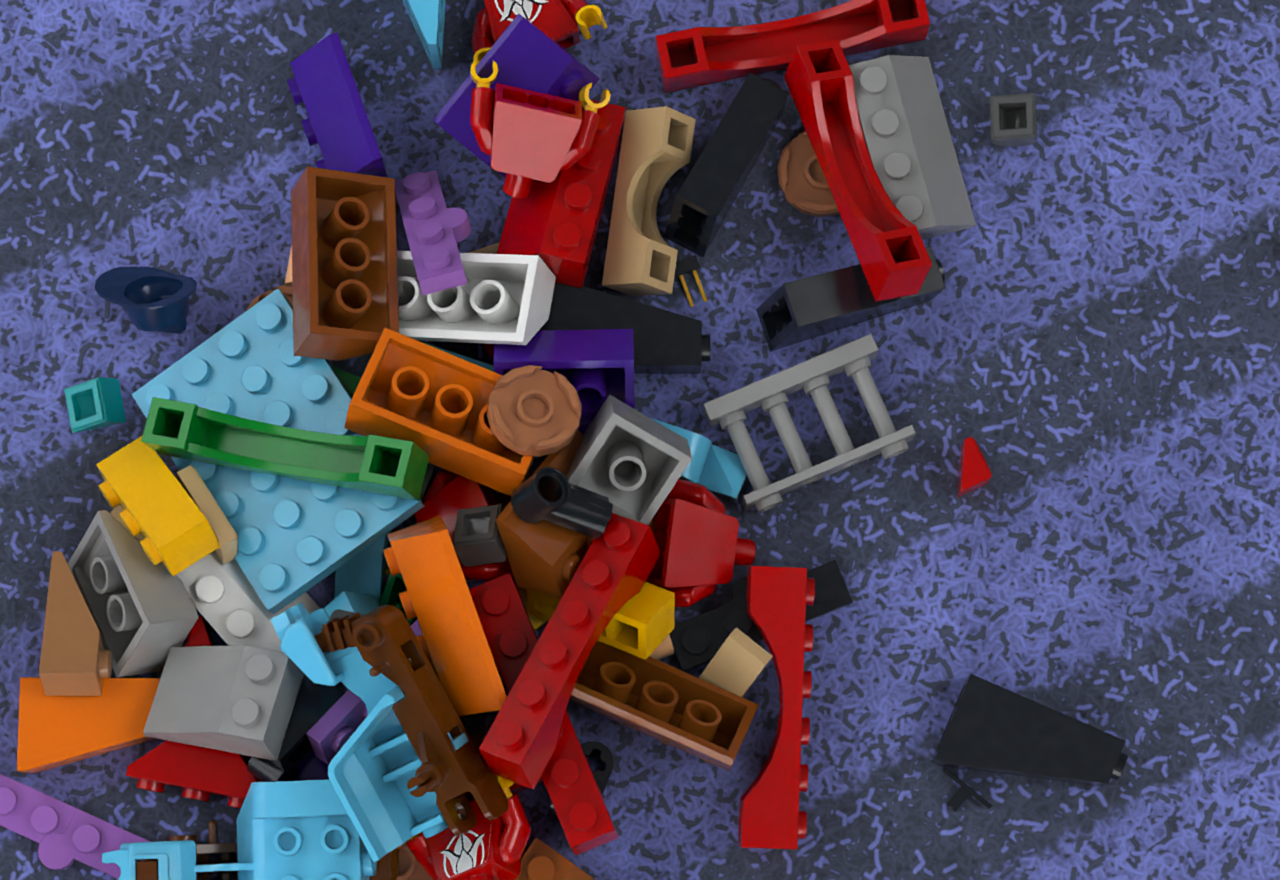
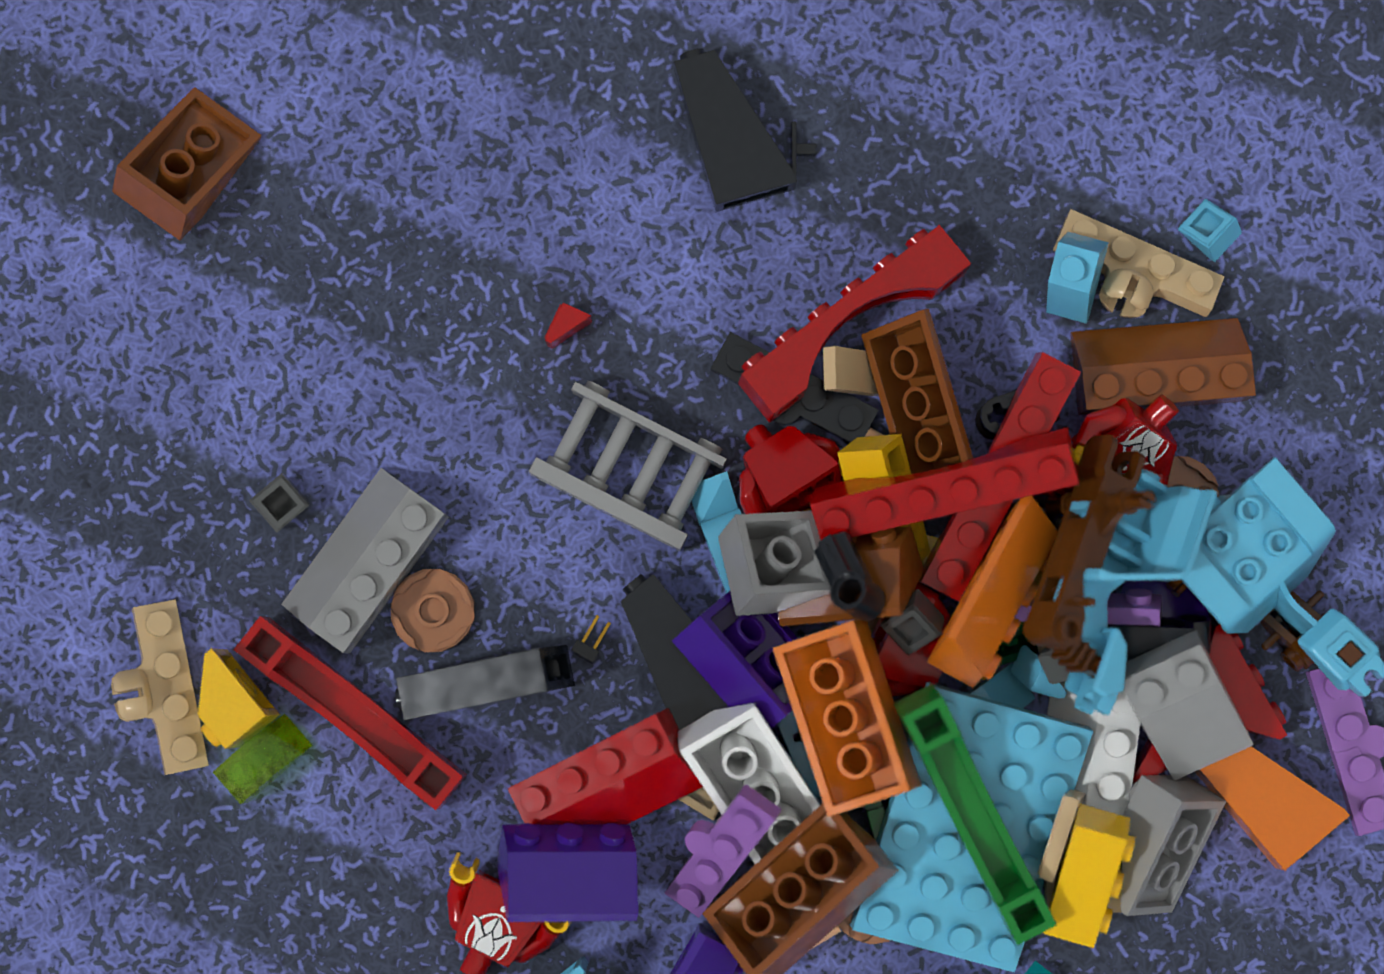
camera: 130 degrees left, 5 degrees up
(72, 646) = (1234, 851): medium nougat slope -> none
(531, 131) = (590, 836): torso -> none
(534, 411) = (799, 654): nougat tile -> none
(652, 150) = (522, 743): tan arch -> none
(834, 302) = (511, 510): black slope -> none
(881, 236) = (453, 519): red arch -> none

